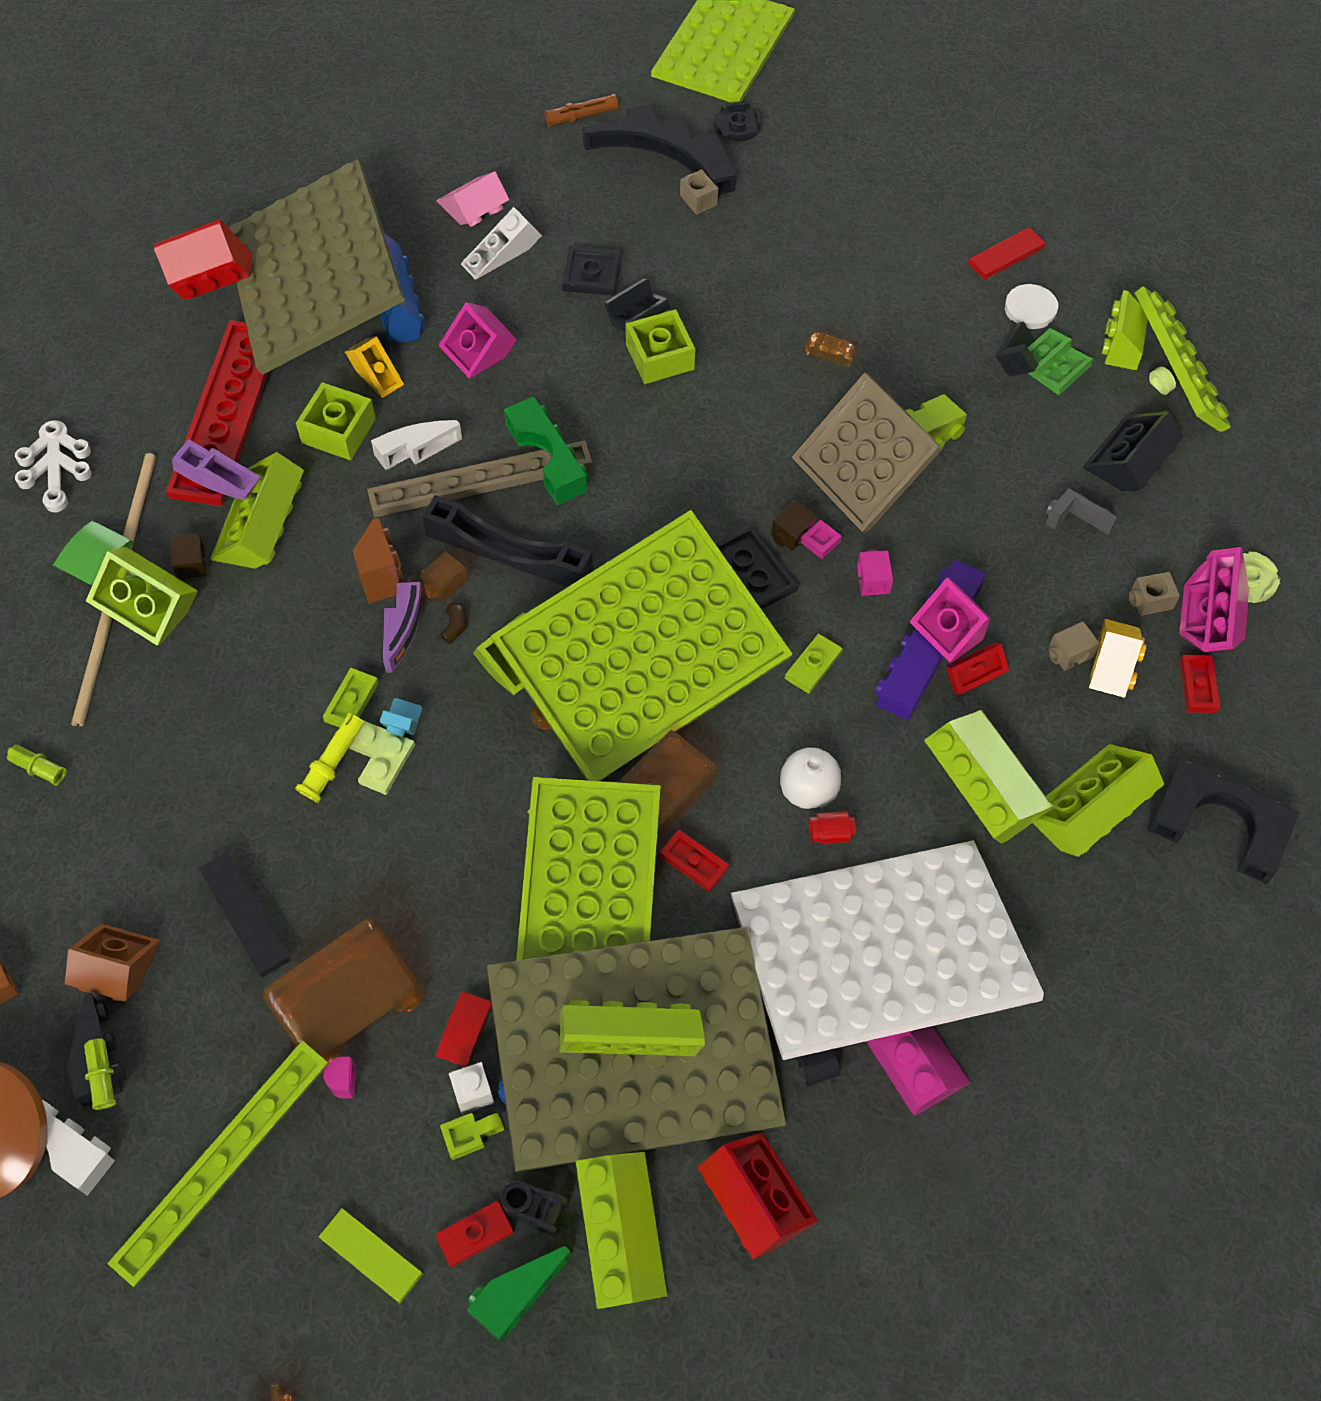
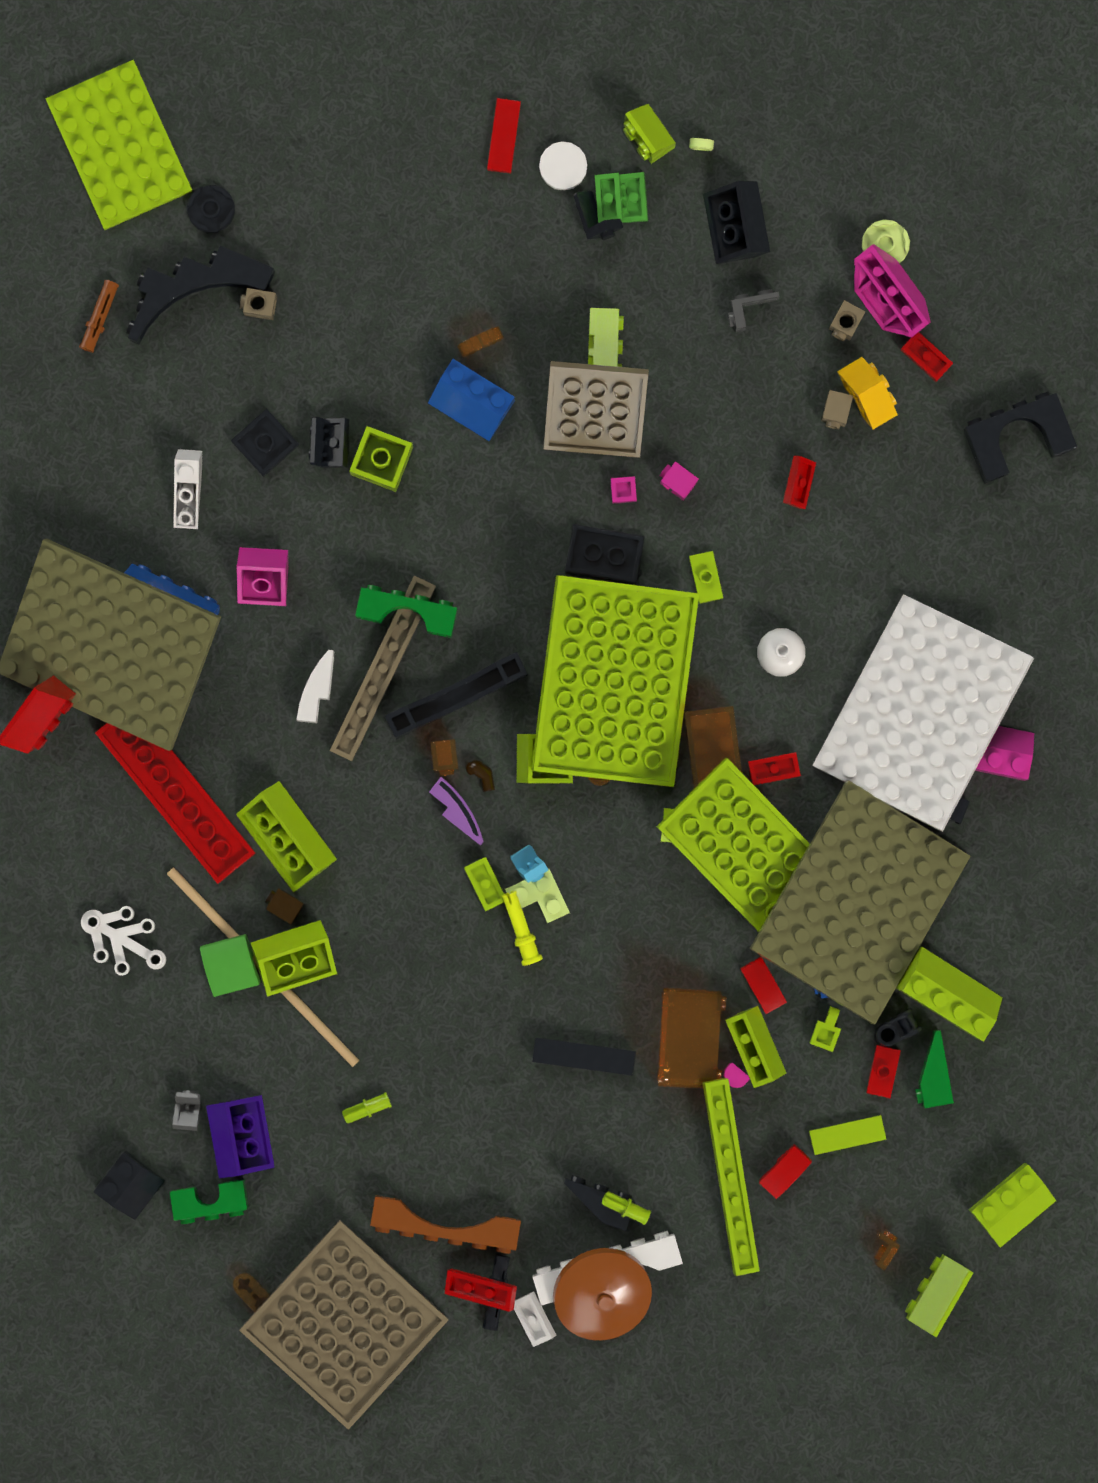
camera: 50 degrees left, 25 degrees up
(110, 962) = (549, 1152): dark orange slope -> none
(214, 470) = (236, 841): medium lavender slope -> none
(274, 1219) = (786, 1171): none -> red slope
(336, 421) = (256, 728): lime brick -> none
(374, 366) = (227, 665): yellow slope -> none
(377, 563) = (404, 794): dark orange slope -> none
(389, 1070) = (756, 1046): none -> lime brick
(471, 1088) = (804, 1010): white brick -> none
(475, 199) = (122, 471): bright pink slope -> none
(630, 1029) = (859, 902): lime slope -> none
(757, 1194) = (994, 904): red slope -> none
(777, 375) = (471, 400): none -> blue slope
(792, 525) = (600, 500): dark brown brick -> none
(832, 828) = (824, 670): red brick -> none
(920, 659) = (755, 491): dark purple brick -> none
(951, 621) = (763, 479): dark pink slope -> none
(988, 775) = (875, 549): lime slope -> none
(1098, 798) = (941, 497): lime slope -> none
(1182, 359) = (700, 117): lime plate -> none

